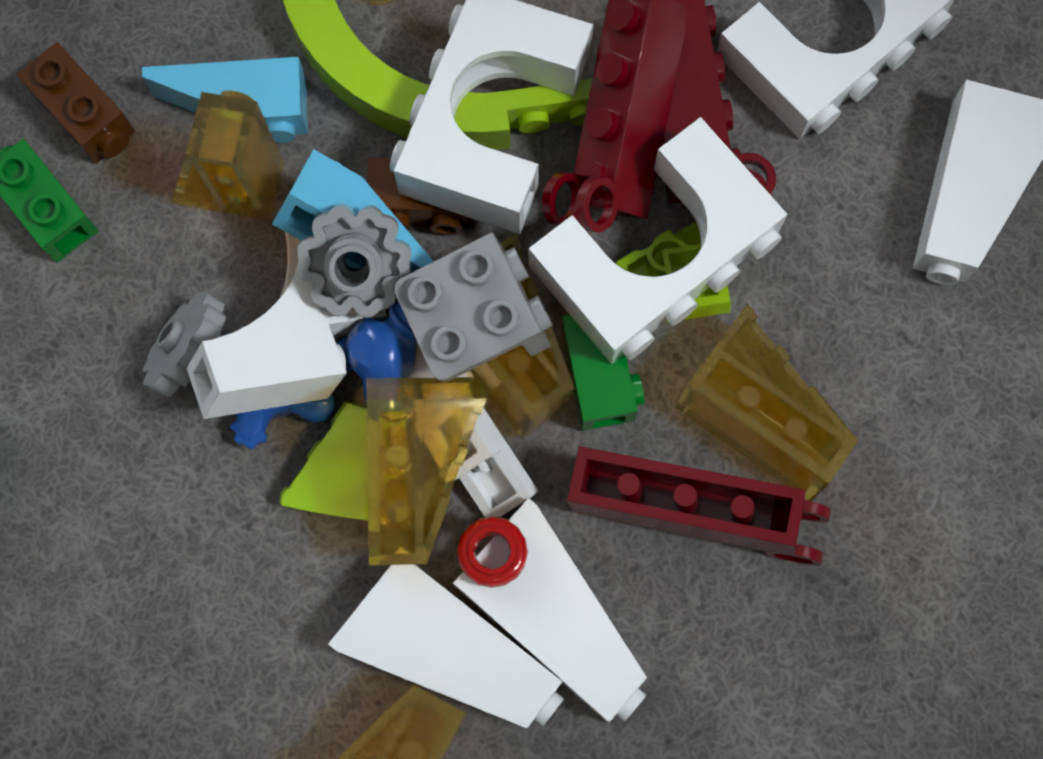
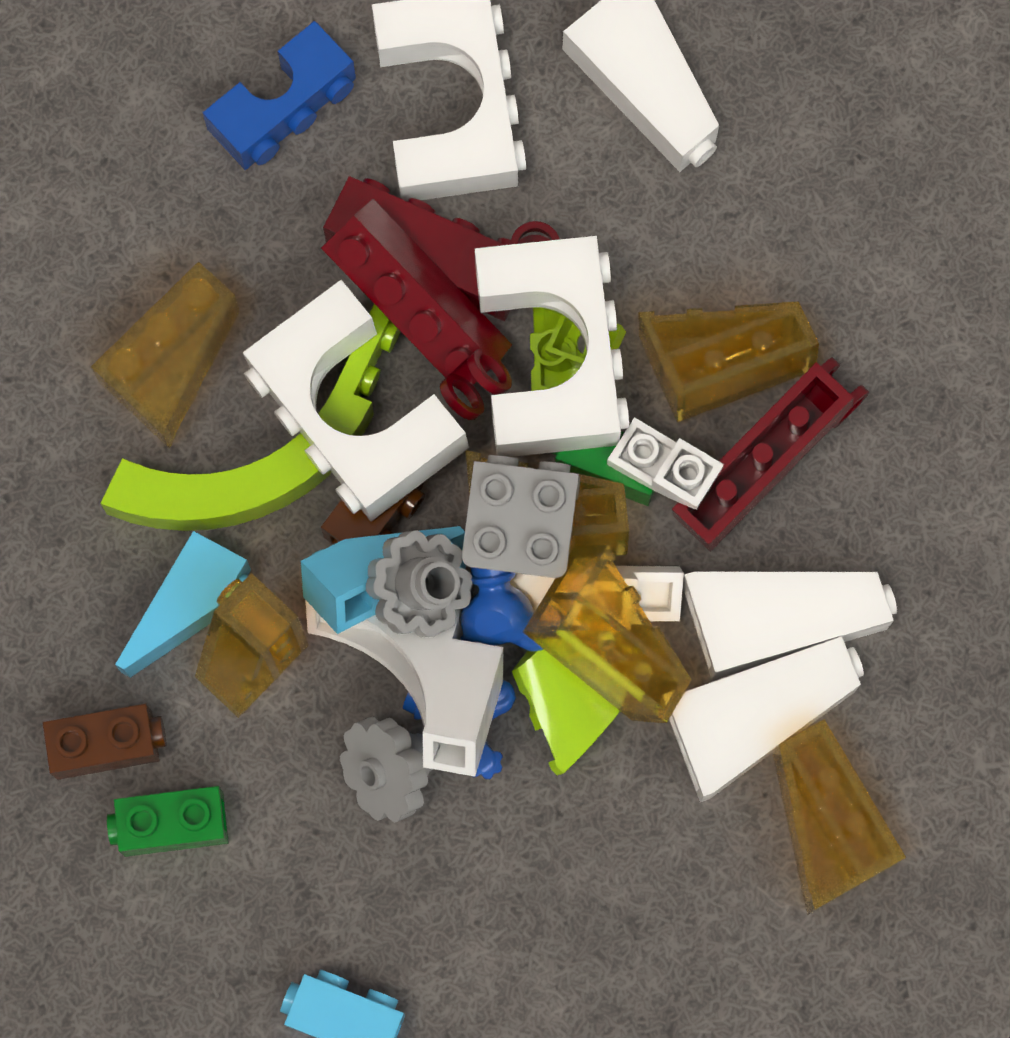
camera: 60 degrees left, 0 degrees up
(474, 534) = (718, 604): red piece -> none
(616, 413) = (664, 465): none -> white slope

